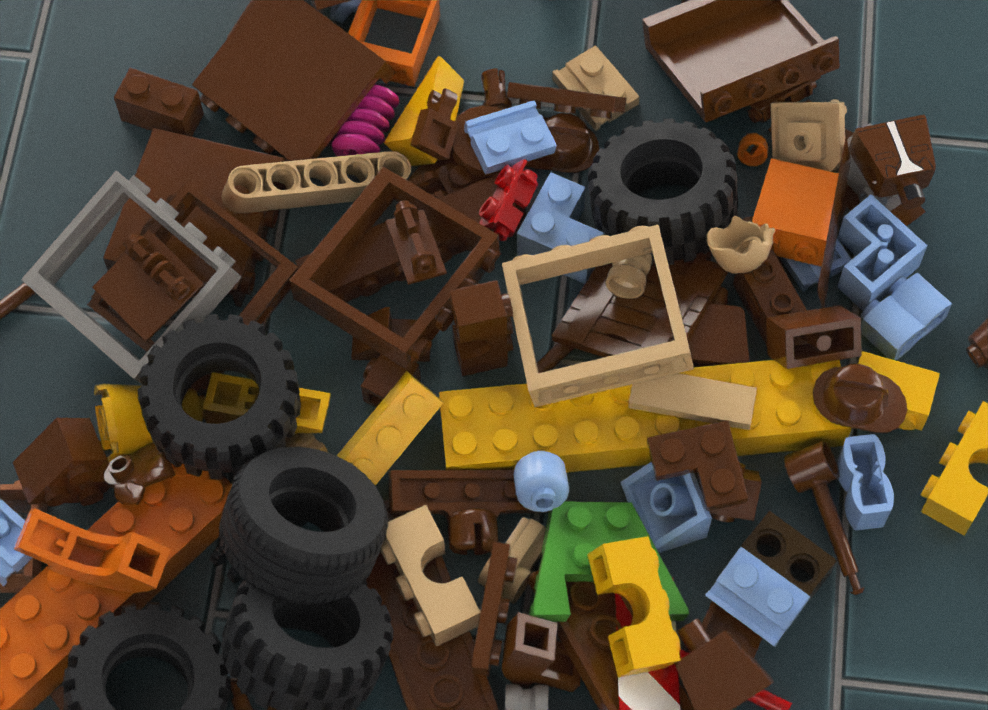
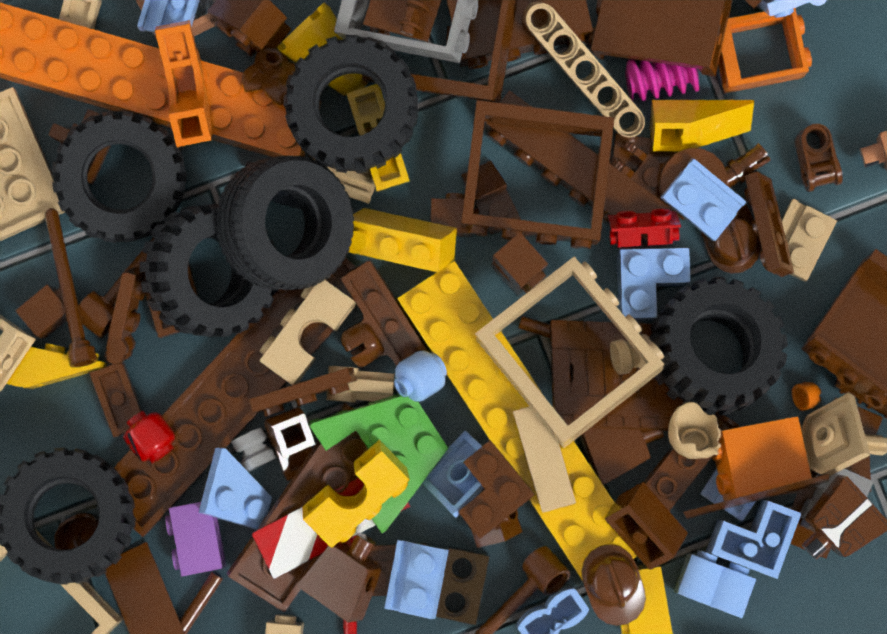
camera: 65 degrees right, 20 degrees up
(415, 243) = (553, 181): reddish brown hinge -> none
(434, 128) = (673, 139): reddish brown plate -> none
(525, 32) = (818, 160): none -> reddish brown piece

